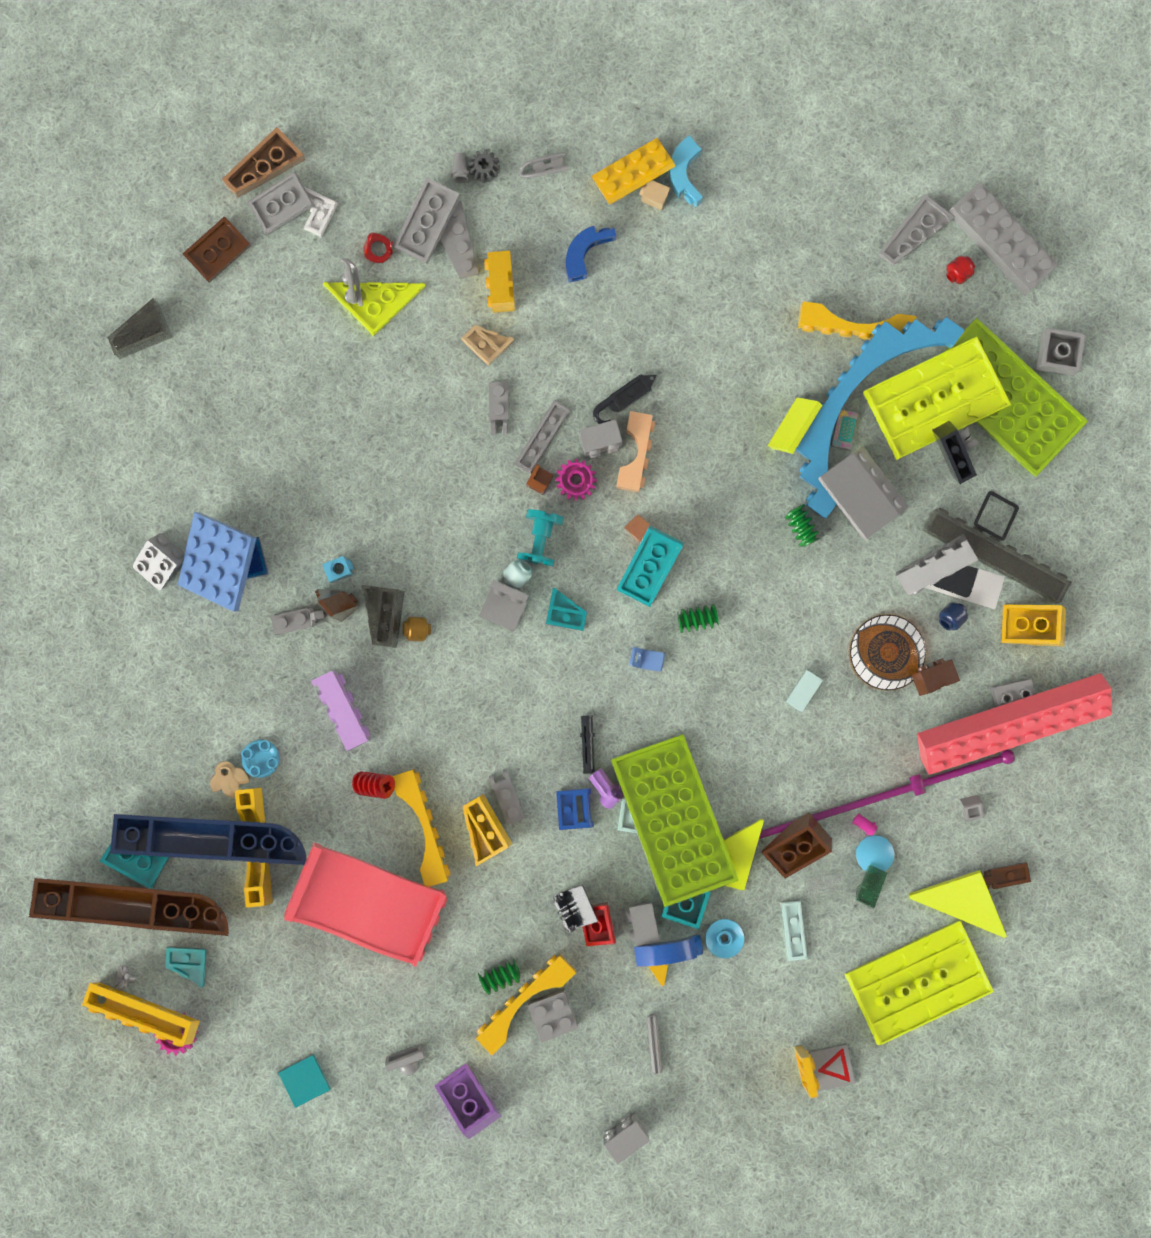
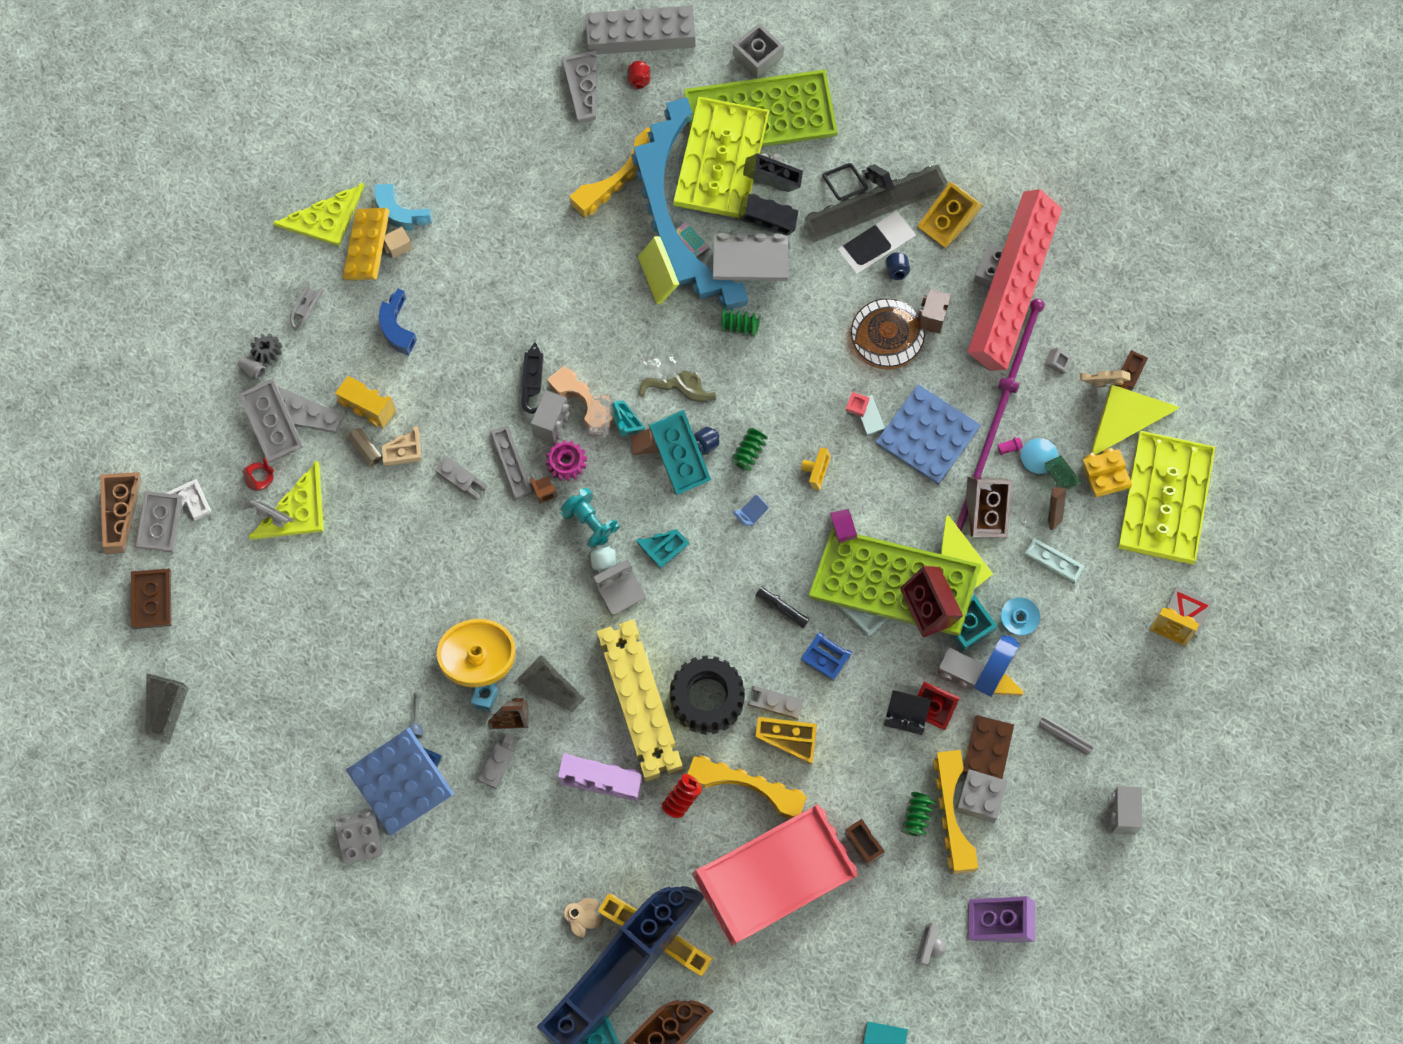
camera: 50 degrees left, 15 degrees down
(260, 758) = (587, 876): medium azure dish -> none
(272, 536) = (415, 727): none -> hinge
(364, 520) = (476, 653): none -> yellow dish
(416, 629) = (582, 670): pearl gold head -> none
(425, 692) = (639, 700): none -> light yellow brick
(442, 741) = (707, 720): none -> black tyre
(445, 952) = (864, 842): none -> reddish brown brick
(464, 312) = (364, 447): none -> dark tan axle
(597, 991) = (988, 746): none -> reddish brown plate
(610, 793) = (835, 617): medium lavender piece -> none
(630, 479) = (600, 415): none -> clear hinge
(632, 119) = (325, 219): none -> neon yellow tile
(646, 499) = (625, 419): none -> teal wing
(674, 865) = (931, 600): none -> dark red slope
(679, 577) = (707, 440): none -> dark blue head
(691, 742) = (843, 525): none -> magenta slope
(716, 508) = (674, 375): none -> piece
(725, 684) = (817, 468): none -> yellow tile
(804, 676) = (857, 404): none -> coral plate
(824, 750) = (928, 434): none -> medium blue plate
(838, 902) = (1056, 507): none -> reddish brown slope
(901, 919) = (1106, 472): none -> yellow plate
(914, 476) = (768, 214): none -> black brick
(937, 565) = (849, 245): wedge -> none
(980, 859) = (1106, 377): none -> tan wing
(1020, 542) = (879, 176): none -> black hinge

